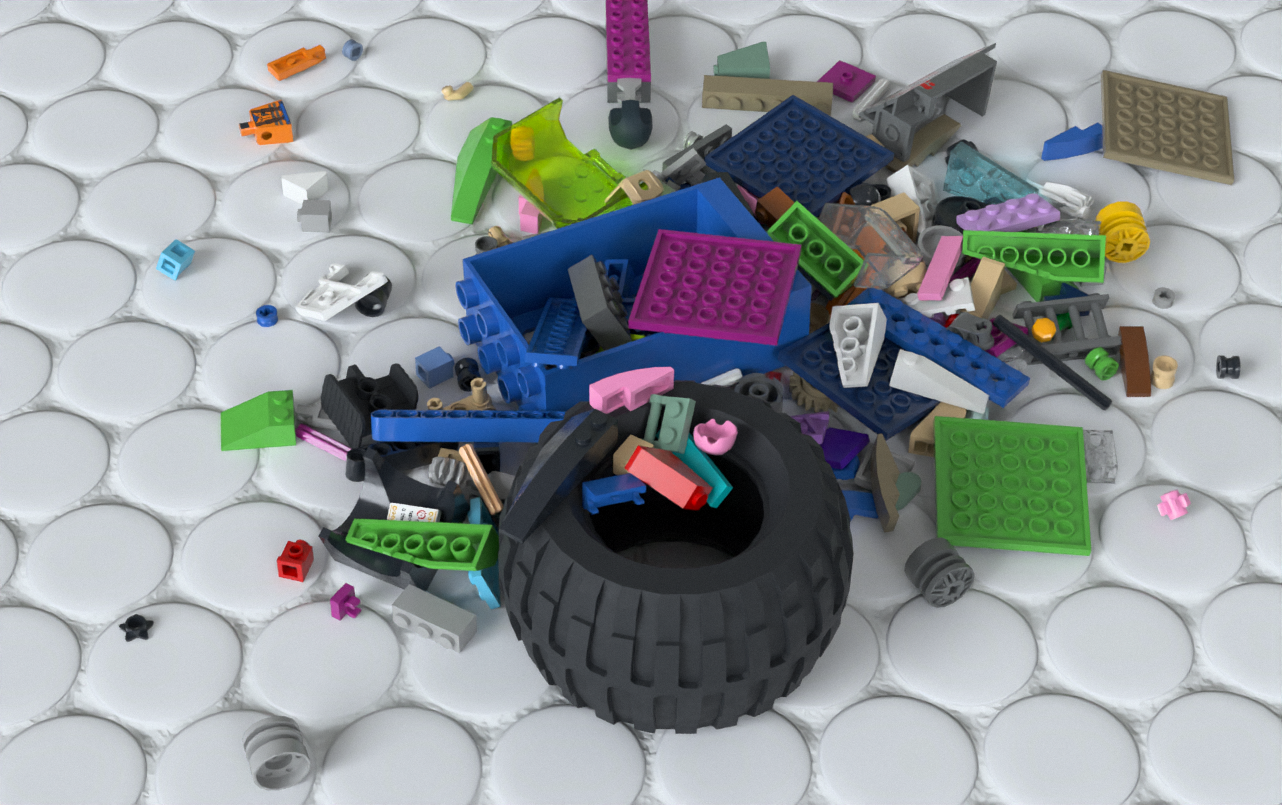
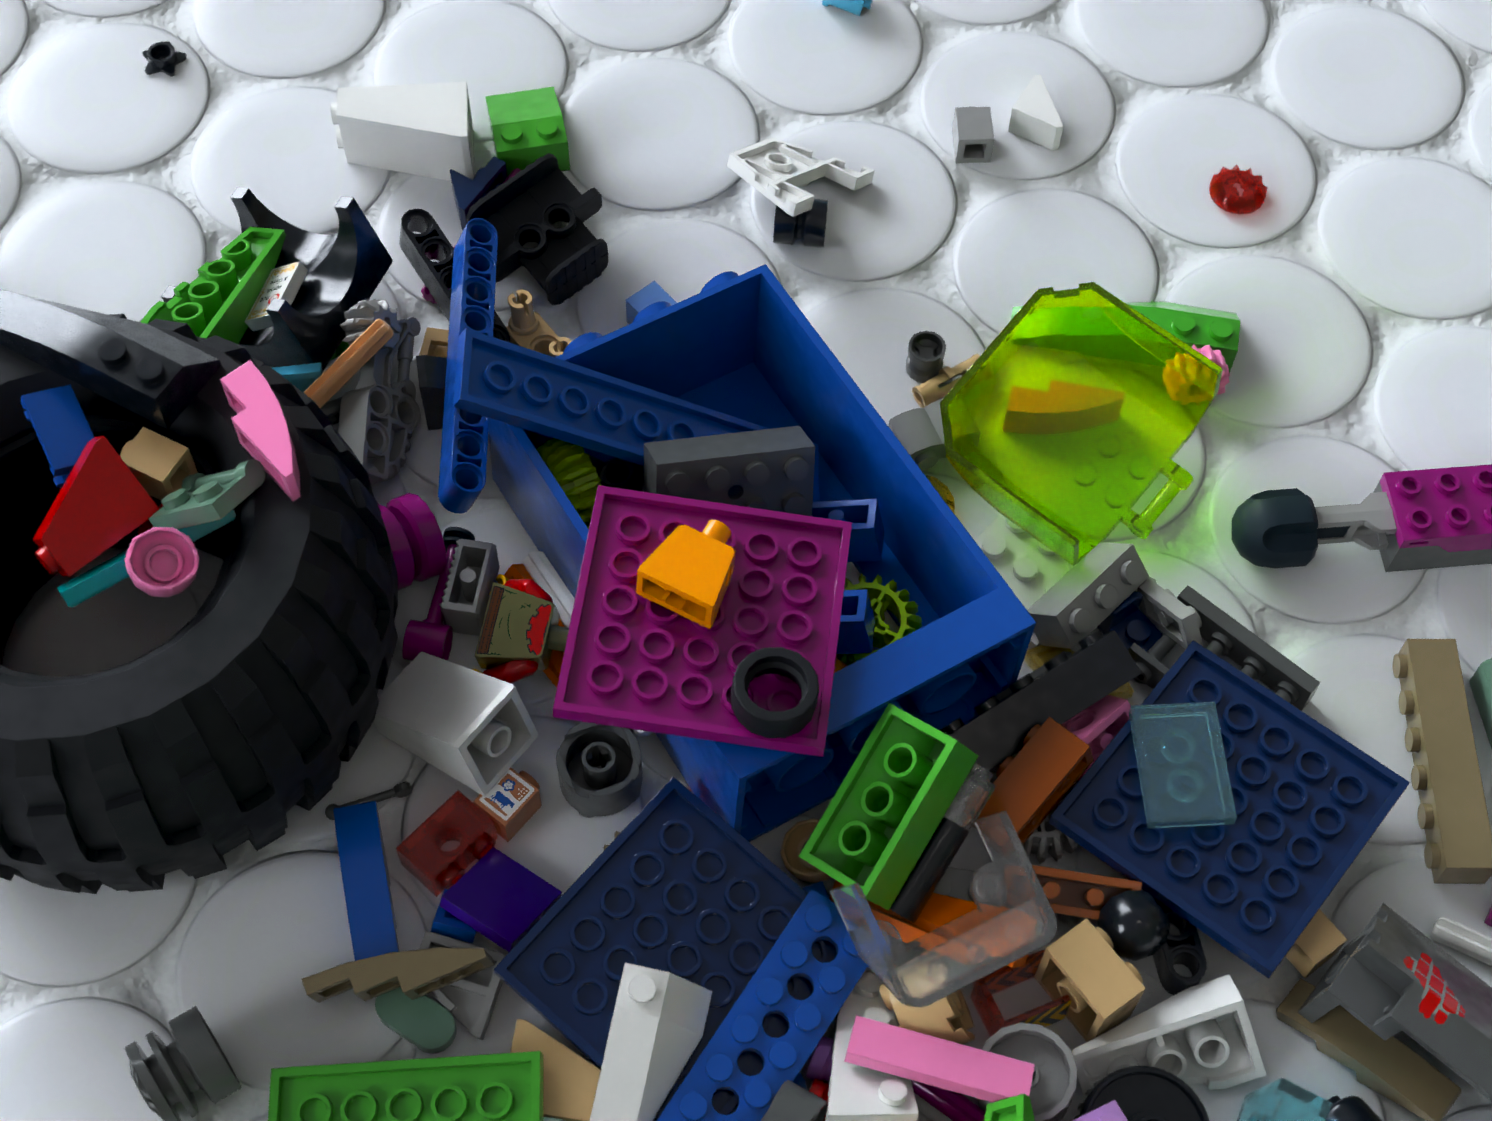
camera: 85 degrees right, 15 degrees up
(261, 469) = (407, 128): none -> white slope
(267, 321) = (754, 119): blue bush -> none
(268, 124) = (1176, 54): orange torso -> none
(296, 62) = (1338, 68): orange hinge -> none
(298, 555) = (270, 192): red brick -> none
(314, 449) = (469, 191): none -> dark blue slope
(345, 603) = (179, 261): magenta tile -> none
(352, 50) = (1389, 132): sand blue bush -> none
(387, 118) = (1228, 198): none -> clear red gear
(458, 94) = (1321, 283): tan arm -> none
(633, 190) = (1043, 557): tan piece -> none
(691, 138) = (1279, 637): light grey bush -> none
(698, 277) = (689, 572): none -> light orange torso
(773, 241) = (785, 663): none -> black tyre
(781, 166) = (1182, 765): none -> clear light blue tile
(814, 424) = (543, 851): medium lavender wing -> none
(857, 341) = (713, 909): white wedge -> none

